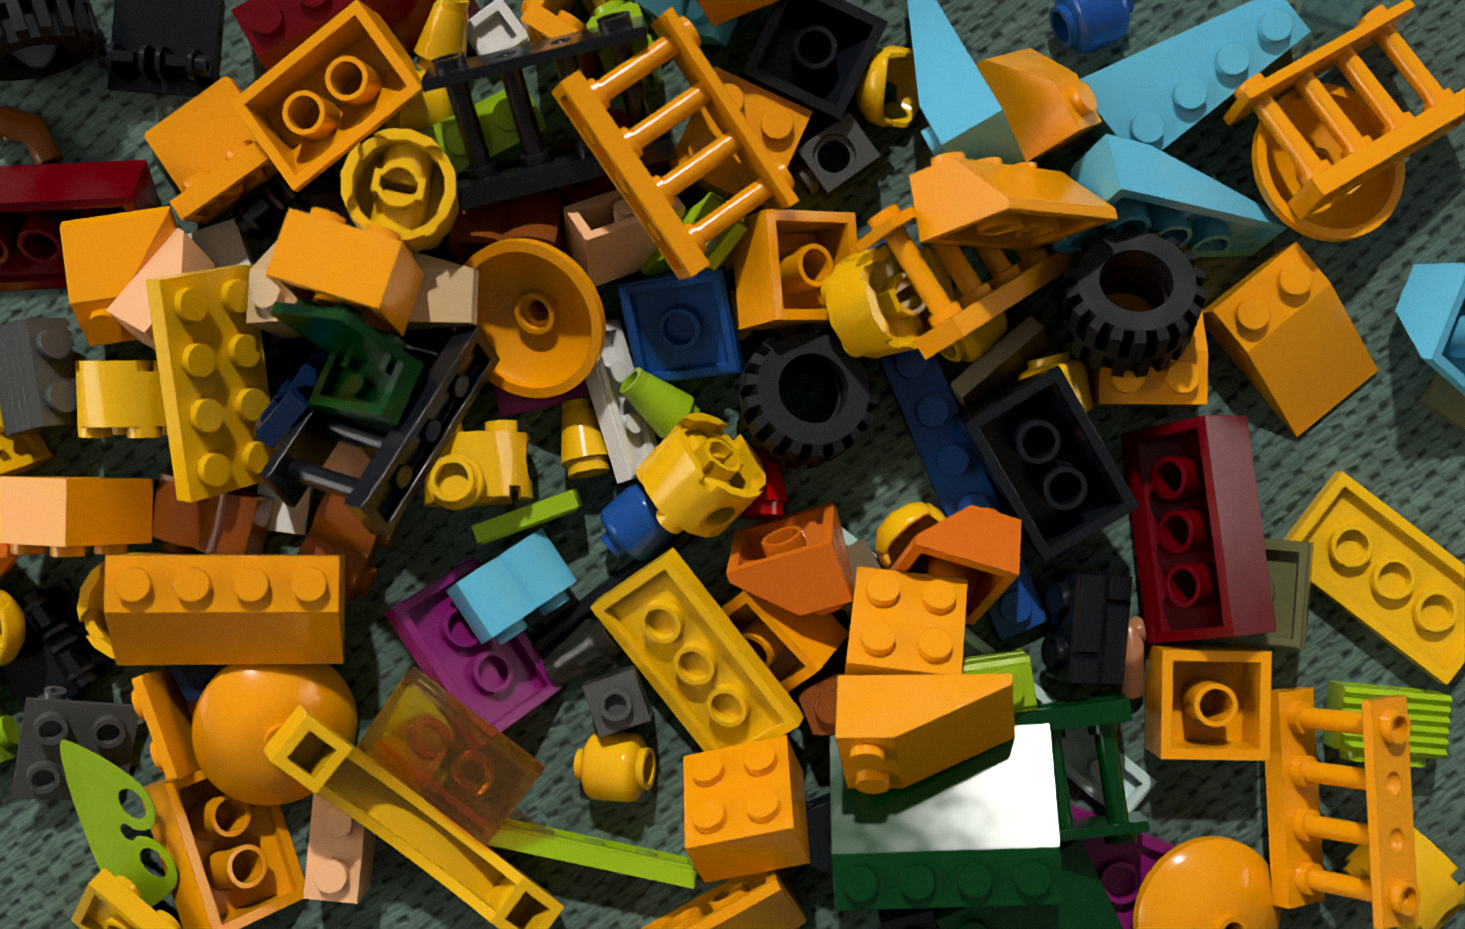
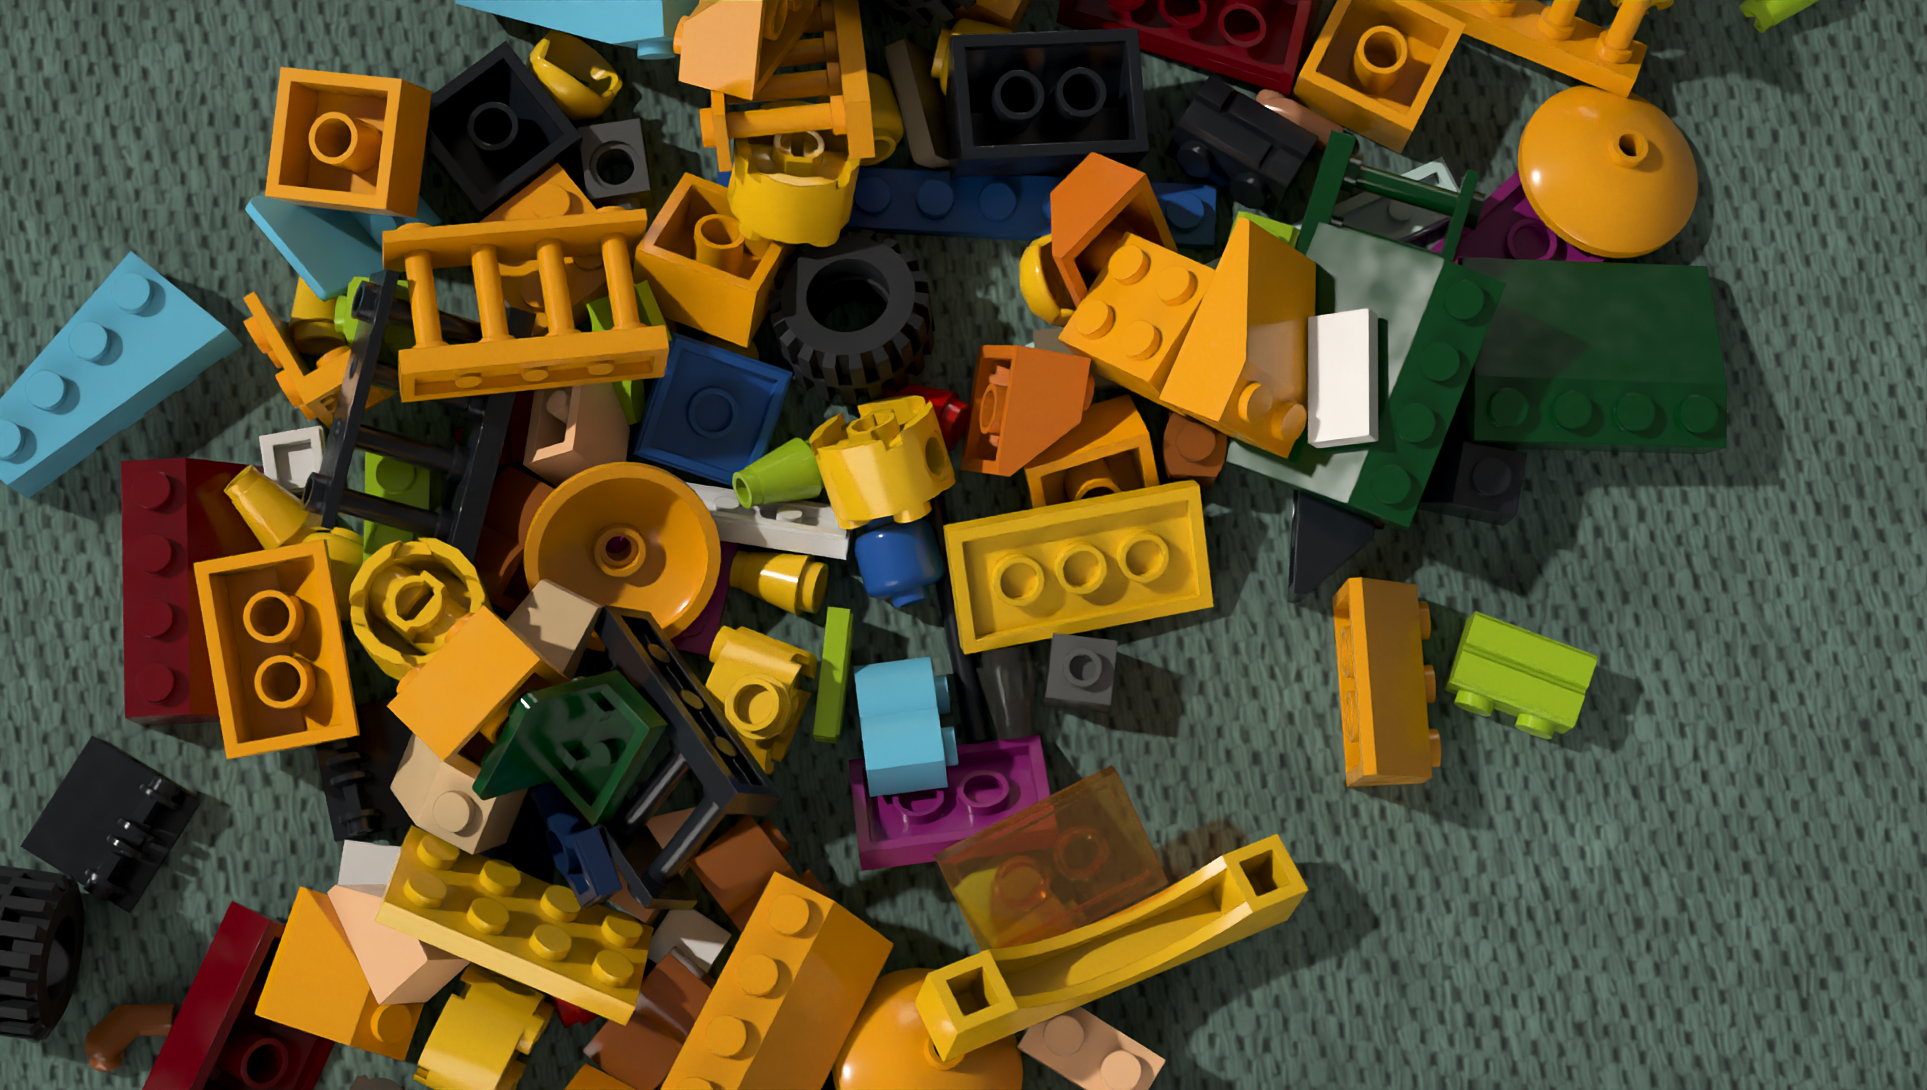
camera: 70 degrees left, 10 degrees down
(210, 154) = (260, 822): light orange bracket -> none
(596, 853) = (1239, 777): lime tile -> none
(615, 767) = (1152, 714): yellow head -> none
(745, 809) = (1262, 584): light orange brick -> none
(927, 807) = (1343, 378): none -> white tile

